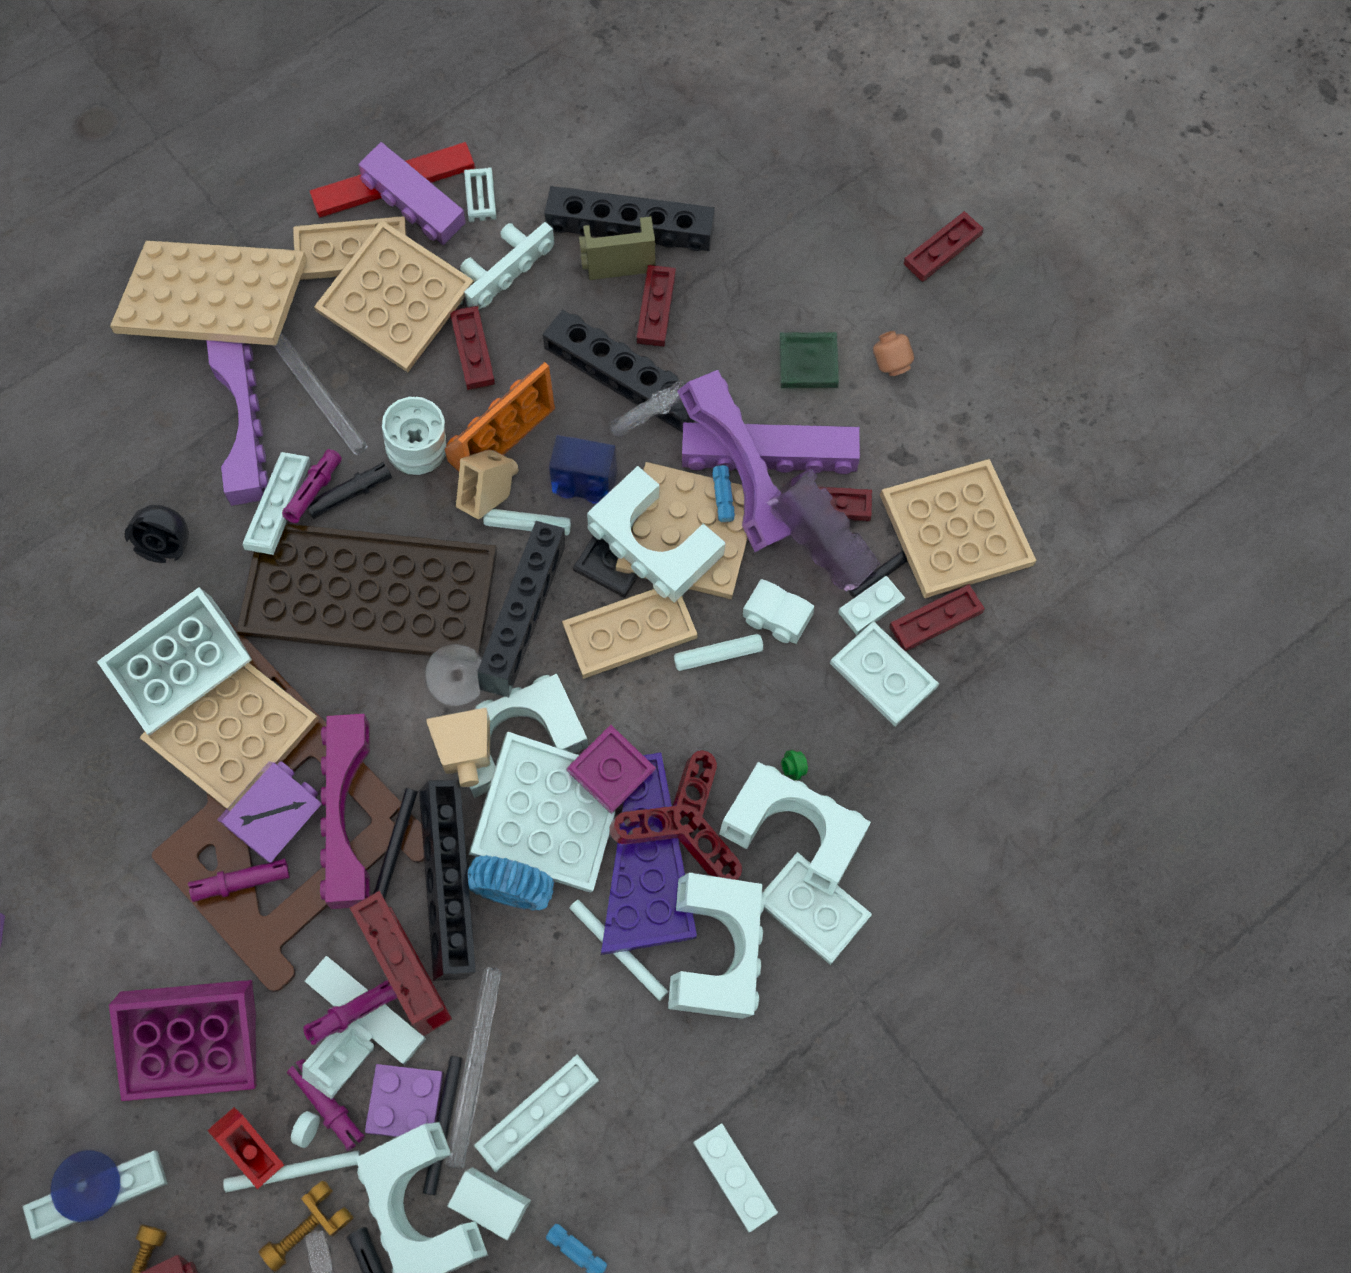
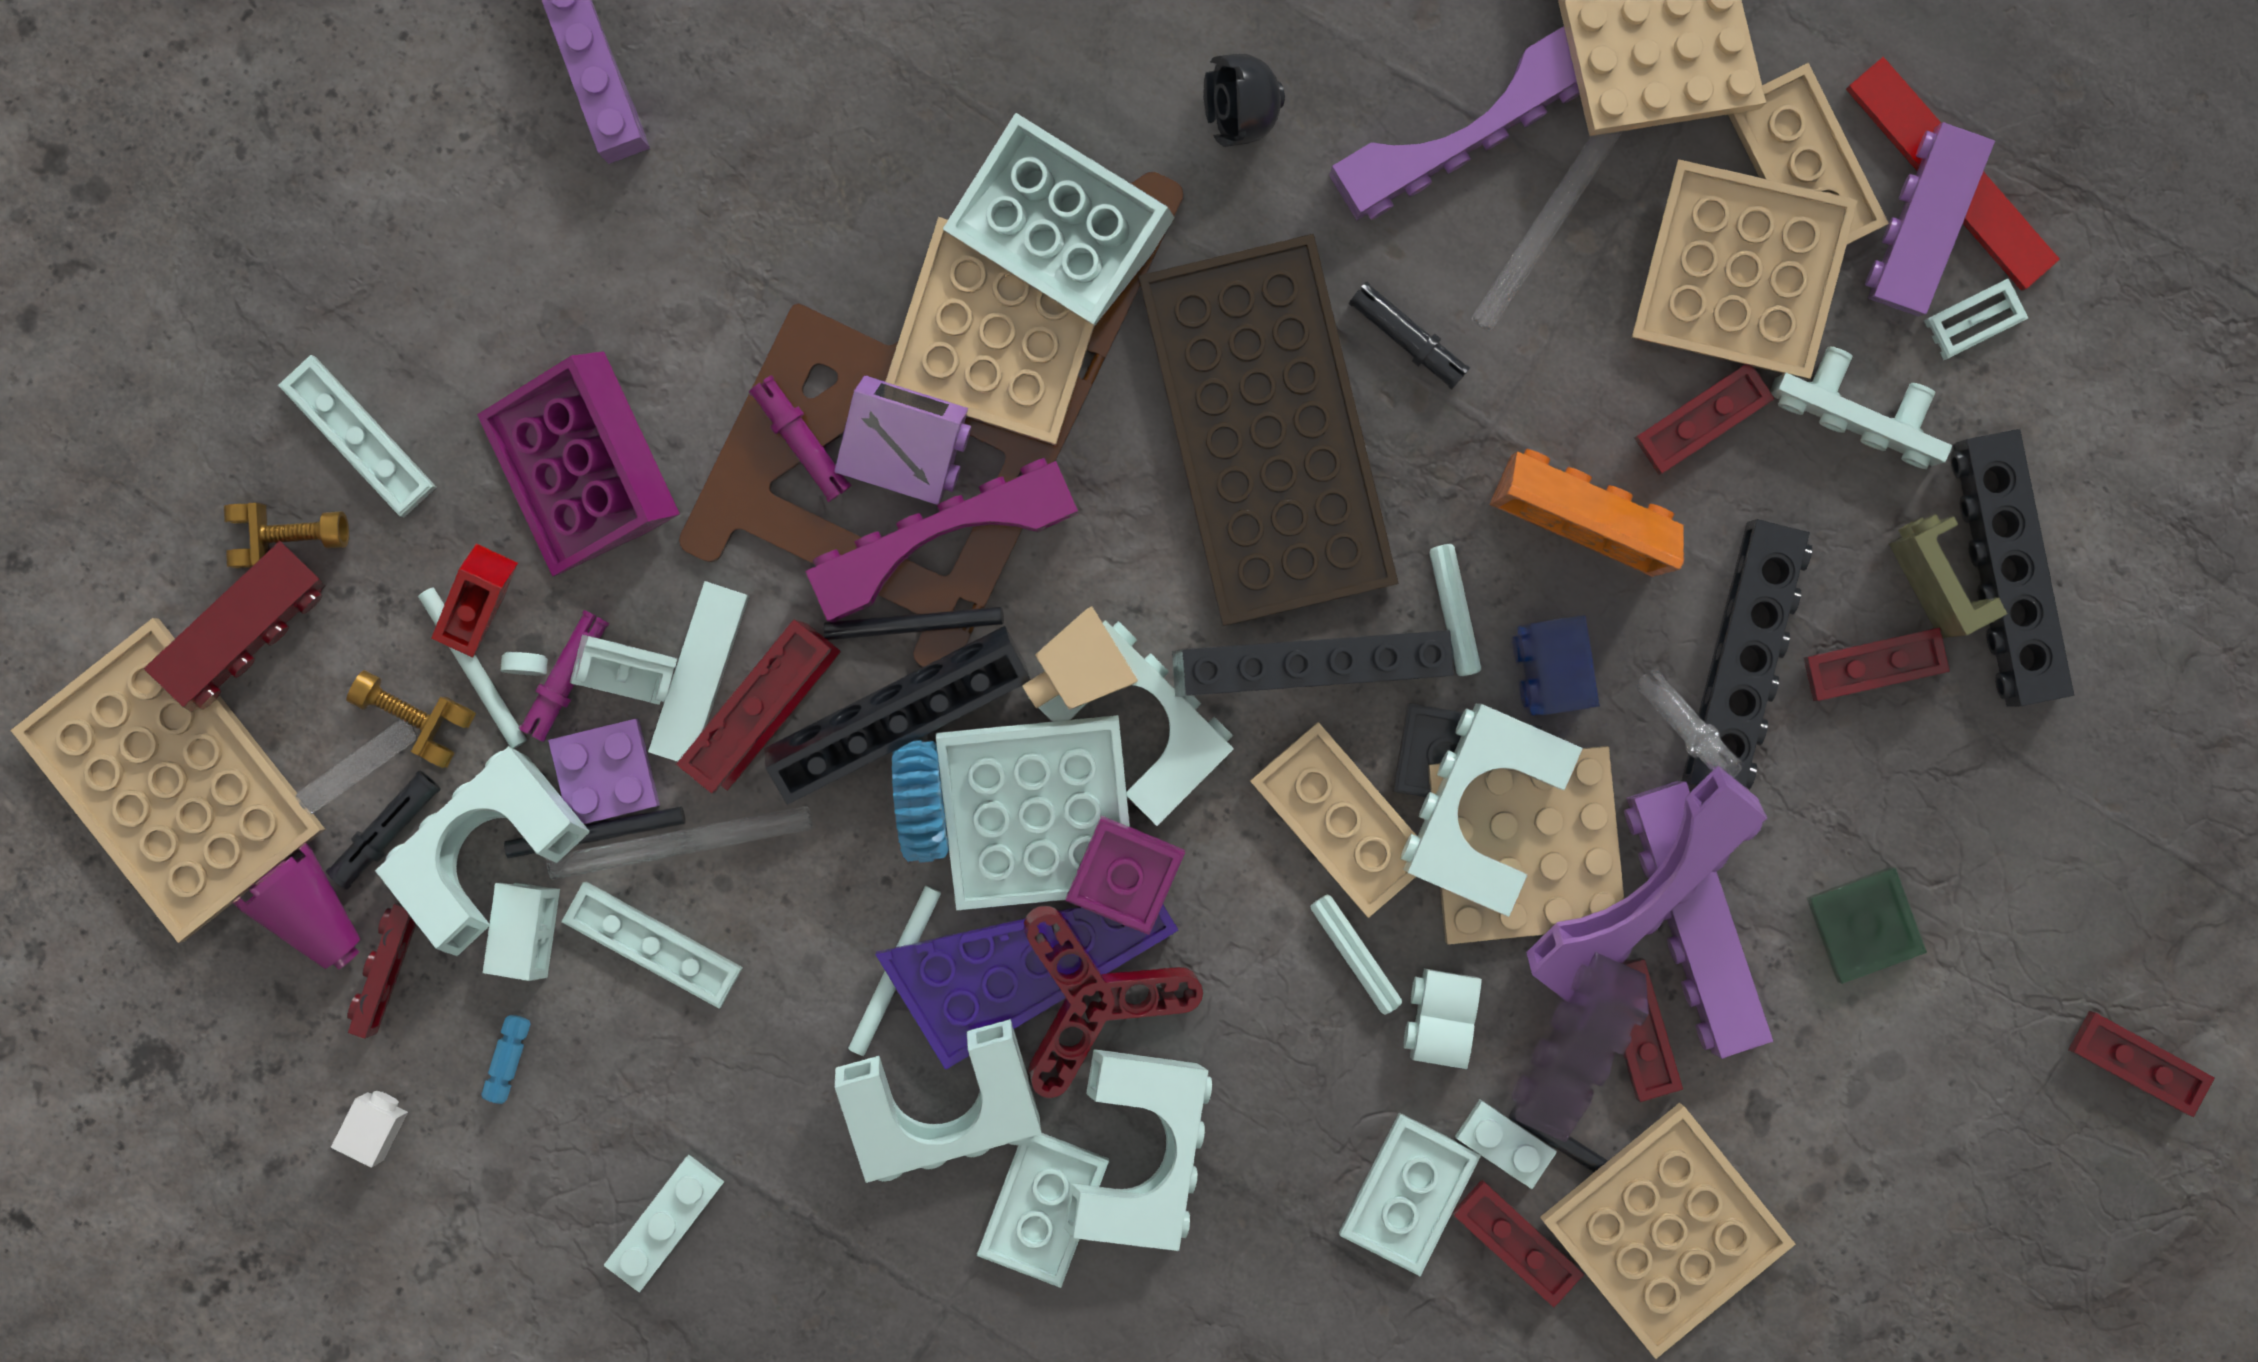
camera: 70 degrees right, 20 degrees up
(101, 1189) = (381, 425): clear blue dish -> none
(268, 520) = (1349, 244): light aqua tile -> none
(318, 476) = (1441, 287): magenta pin -> none
(340, 1017) = (664, 657): magenta pin -> none
(414, 435) = (1543, 385): light aqua wheel -> none
(440, 675) = (1166, 602): clear dish -> none
(484, 482) = (1485, 531): tan torso -> none
(723, 493) = (1594, 880): dark azure axle -> none
(794, 764) = (1228, 1117): green plate -> none
(893, 353) = (1919, 1050): nougat head -> none

